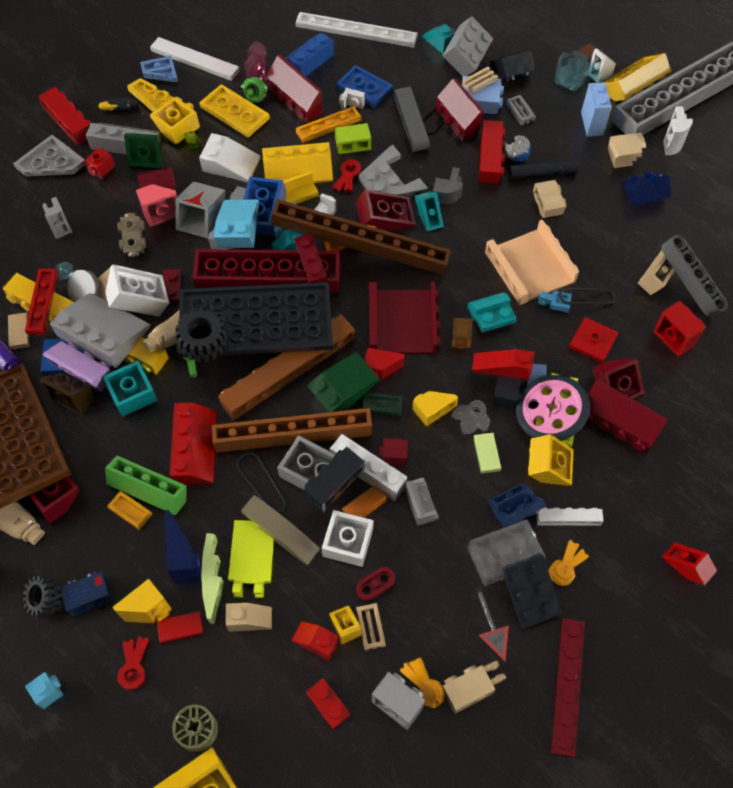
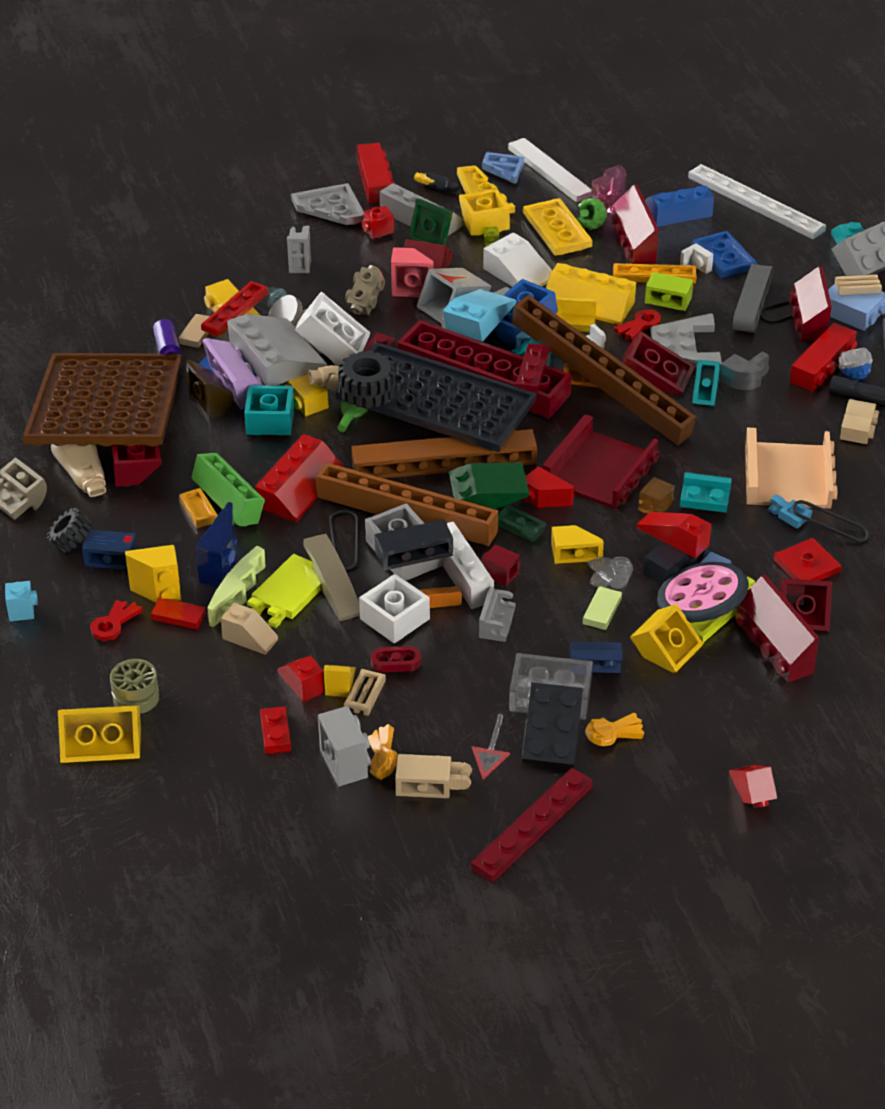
camera: 30 degrees right, 20 degrees down
(570, 516) = (649, 693): white piece -> none

